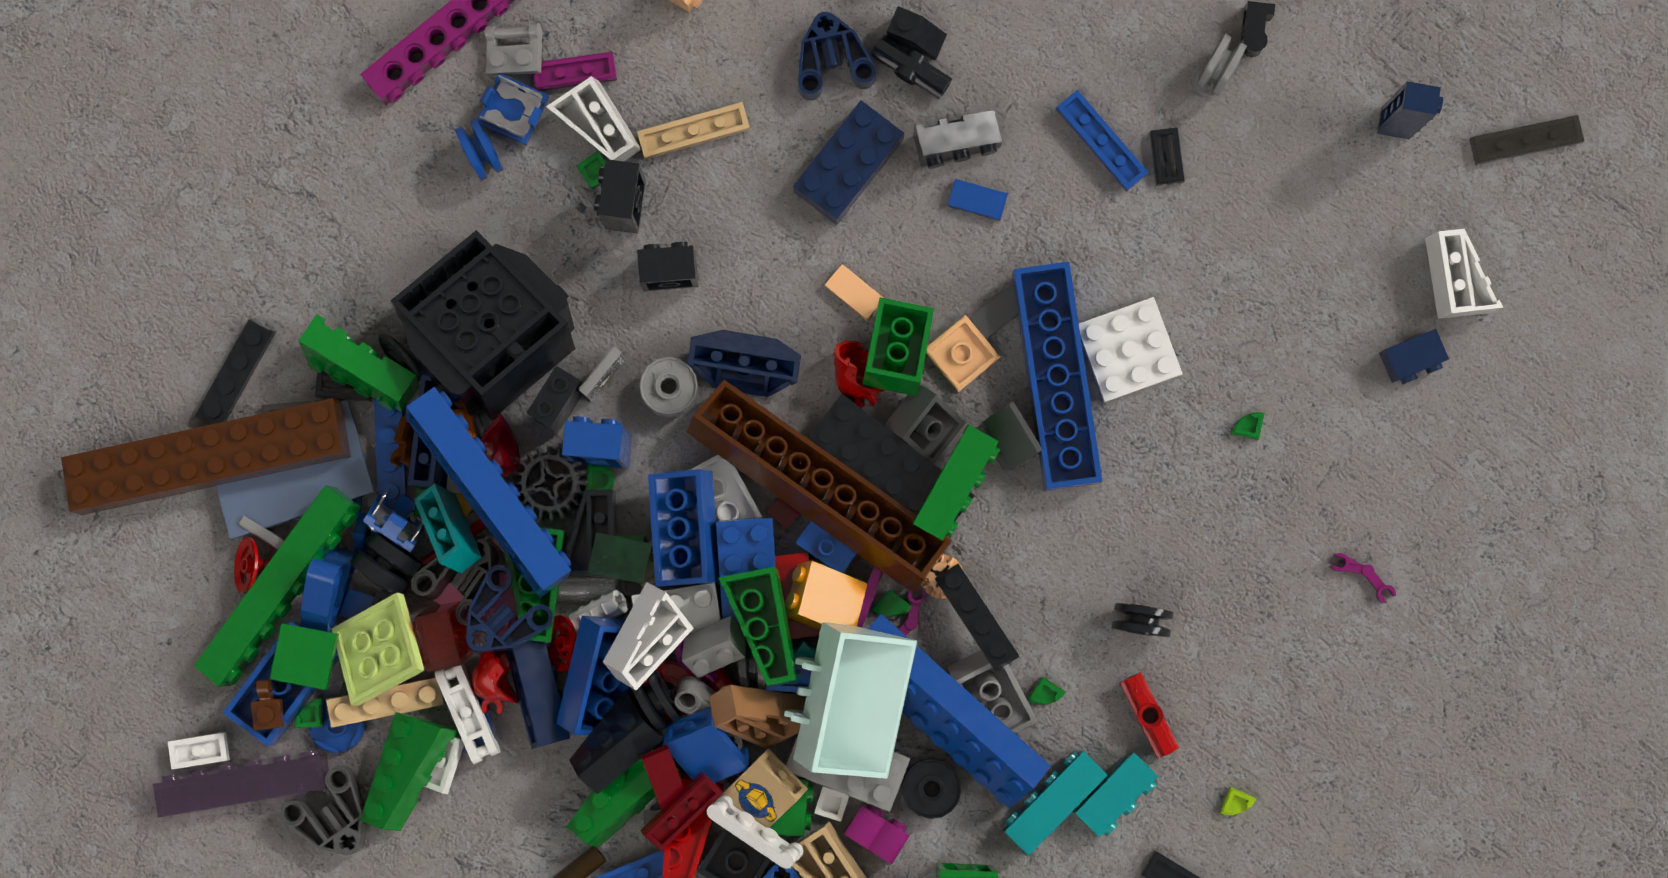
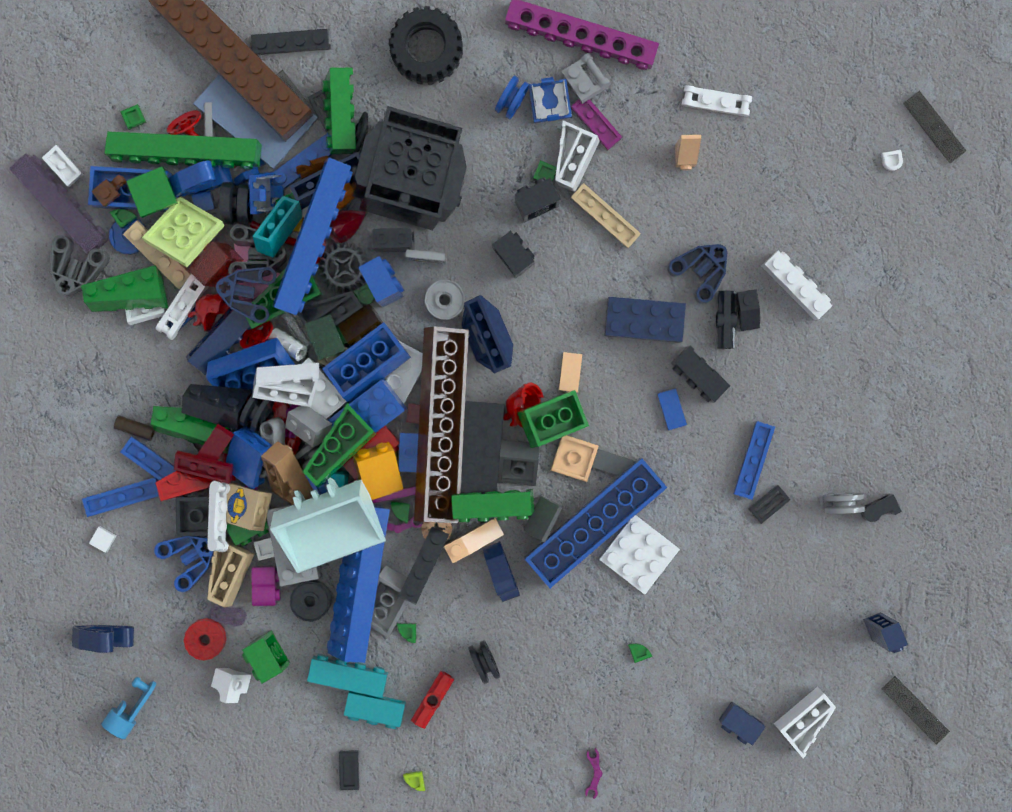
camera: 60 degrees right, 5 degrees up
(197, 625) = (133, 117): none -> green tile
(326, 185) = (426, 20): none -> black tyre
(632, 508) = (360, 324): none -> dark brown brick
(984, 539) = (473, 540): none -> light nougat slope
(1044, 528) = (500, 571): none -> dark blue connector

